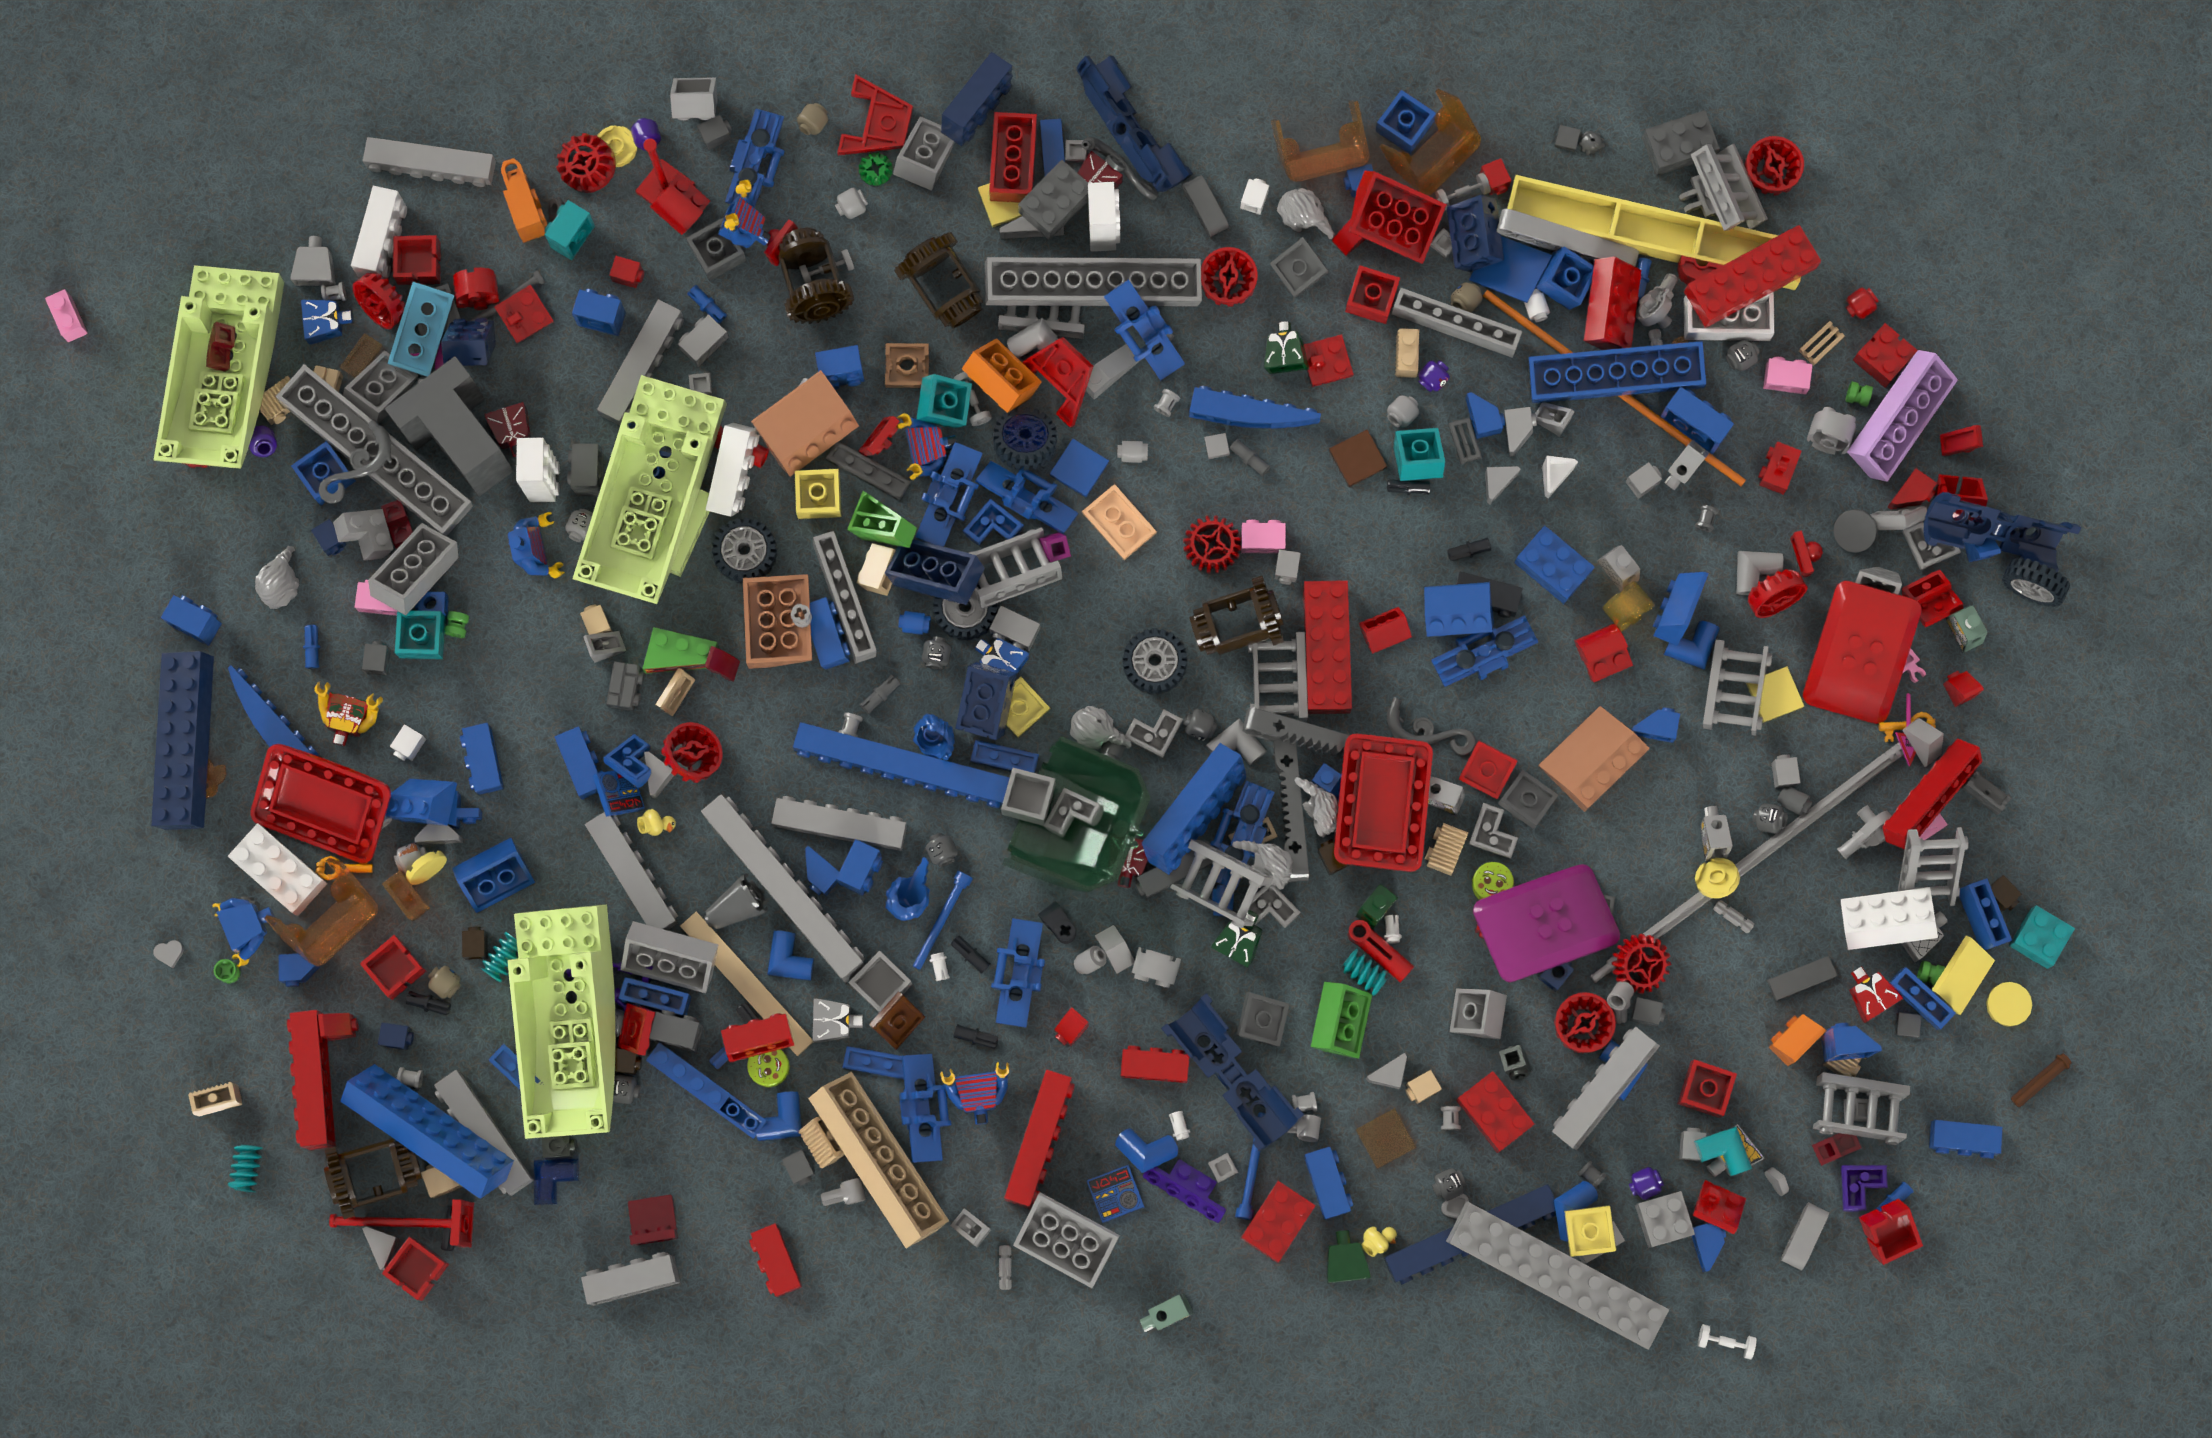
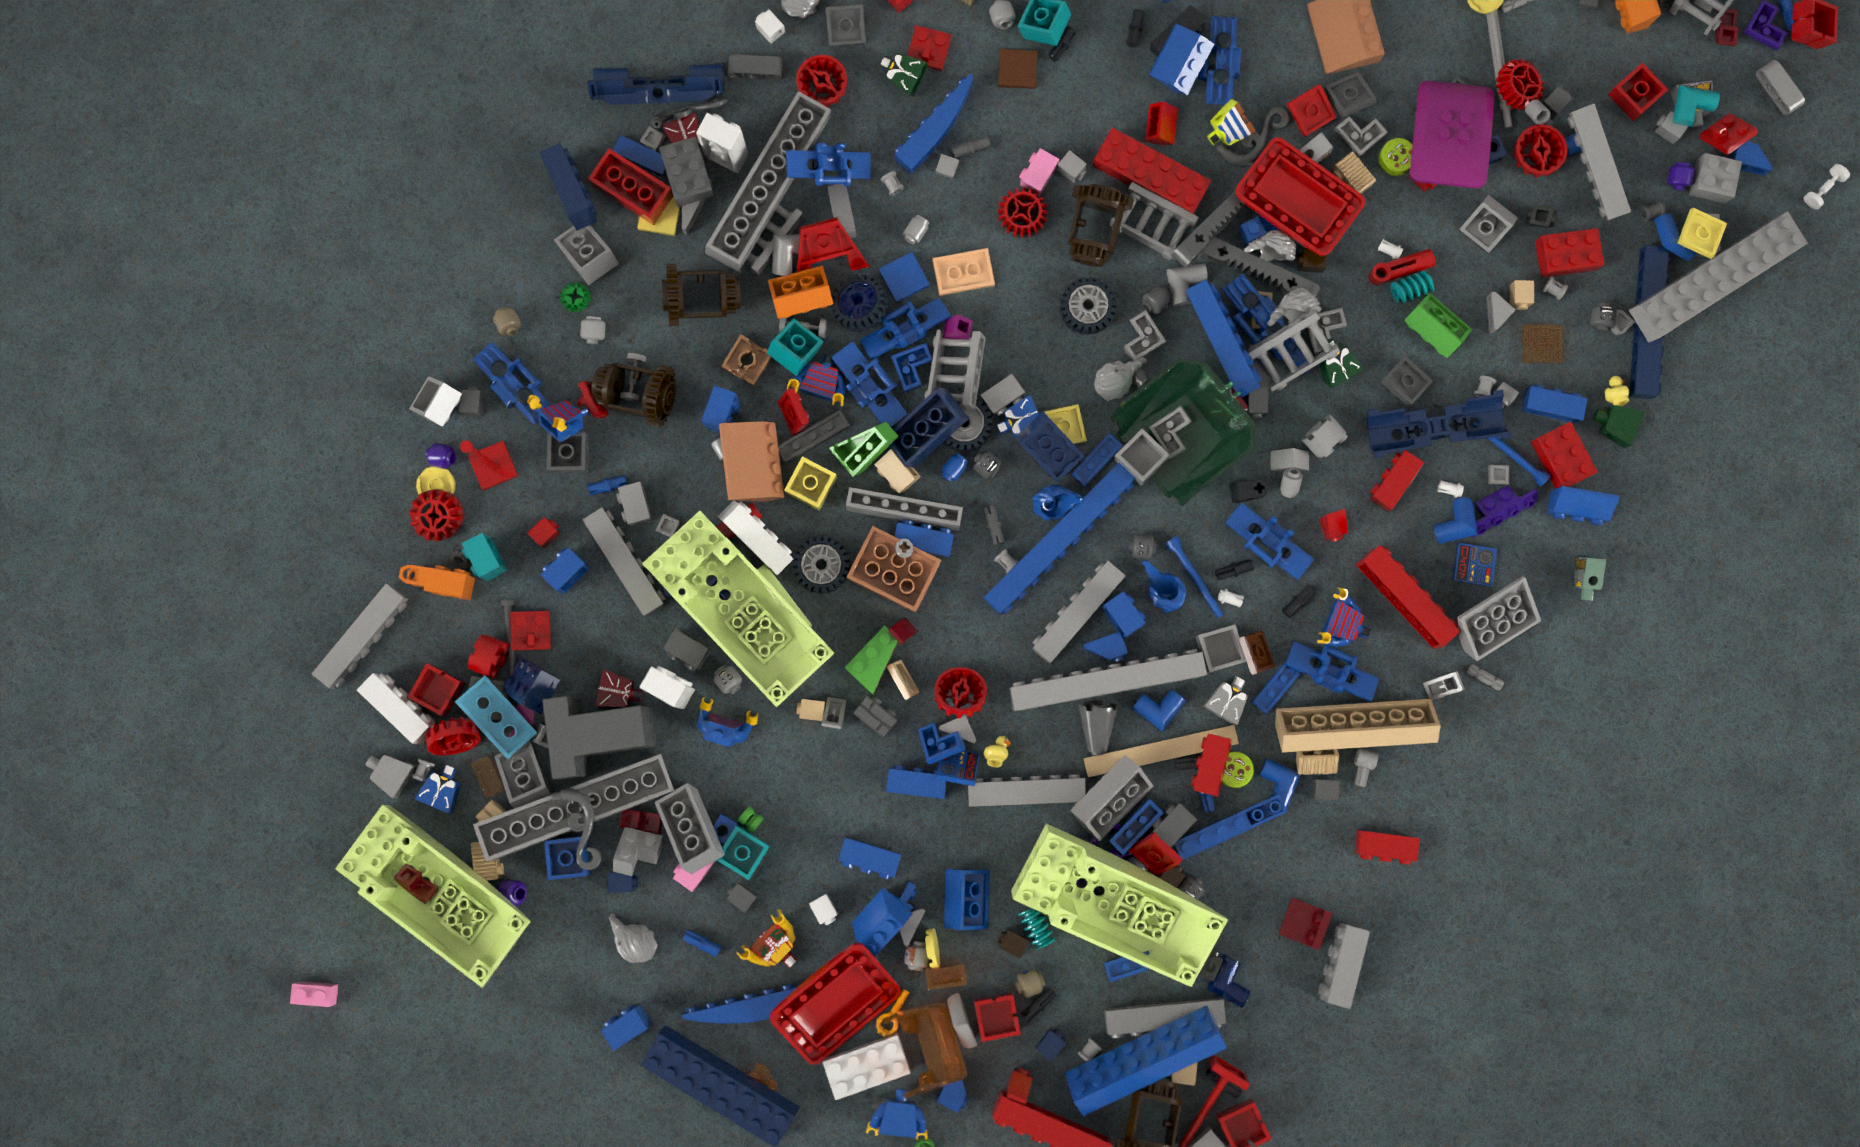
camera: 60 degrees left, 5 degrees up
(369, 934) = (960, 1021): none -> light grey brick
(680, 204) = (514, 460): red brick -> none
(885, 123) = (543, 268): red wing -> none
(1235, 1266) = (1582, 505): none -> blue slope
(1376, 906) = (1369, 247): dark green torso -> none
(1422, 696) = (1230, 124): none -> torso
(1777, 1180) = (1729, 83): light grey tile -> none

